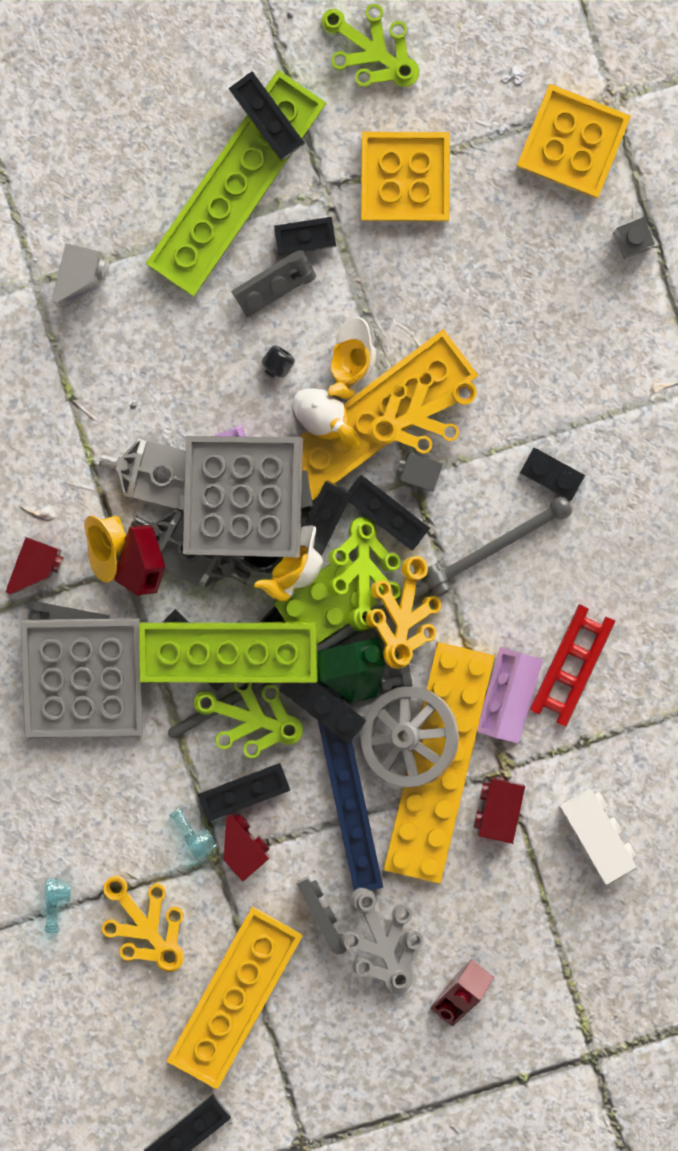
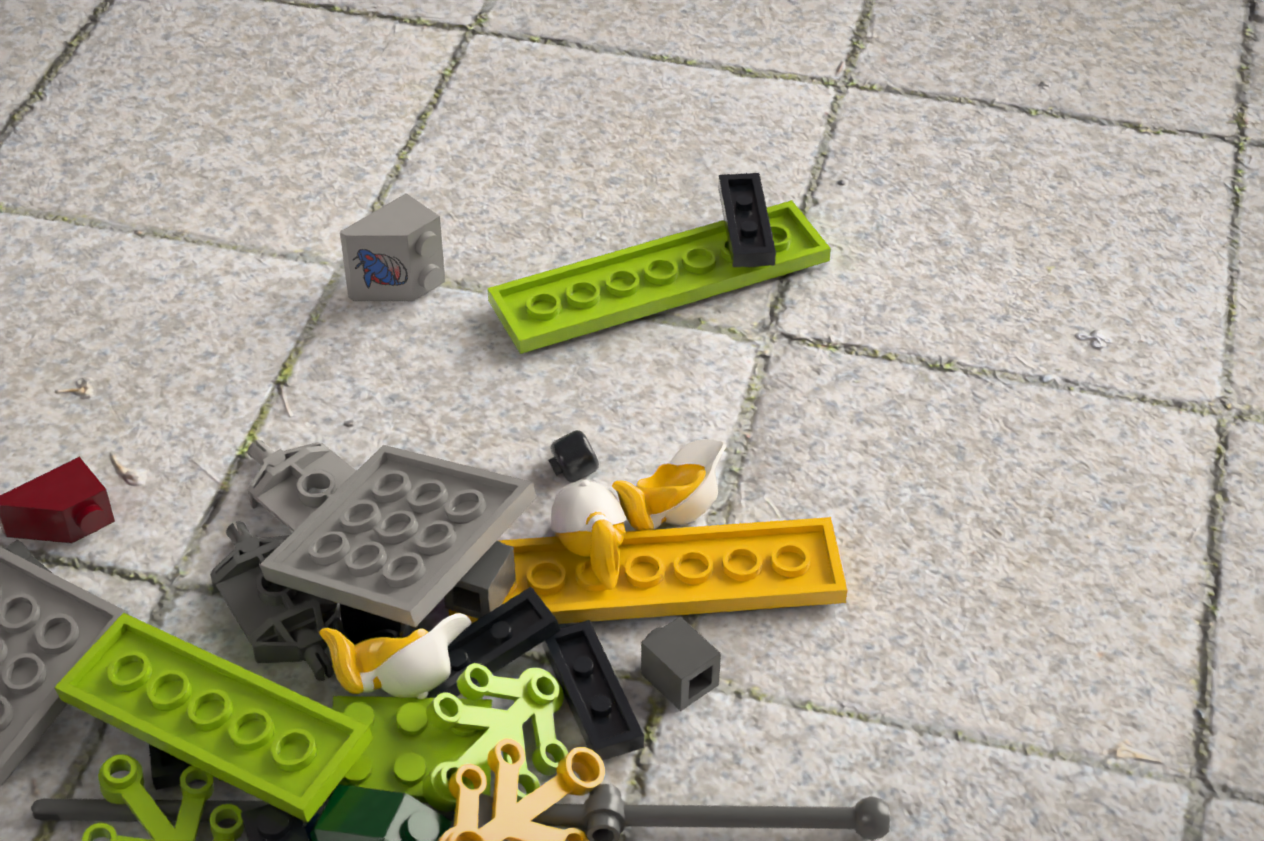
camera: 30 degrees right, 45 degrees down
(105, 544) = (181, 525): yellow piece -> none
(140, 562) = (198, 554): dark red slope -> none
(273, 283) = (631, 376): dark grey plate -> none
(305, 236) = (709, 354): black plate -> none
(373, 50) = (948, 270): lime plant -> none
(405, 176) = (885, 357): yellow plate -> none
(418, 415) = (674, 578): yellow plant -> none
(552, 474) = (886, 773): black plate -> none
(573, 141) = (1144, 418): yellow plate -> none
(633, 238) = (1180, 544): dark grey brick -> none

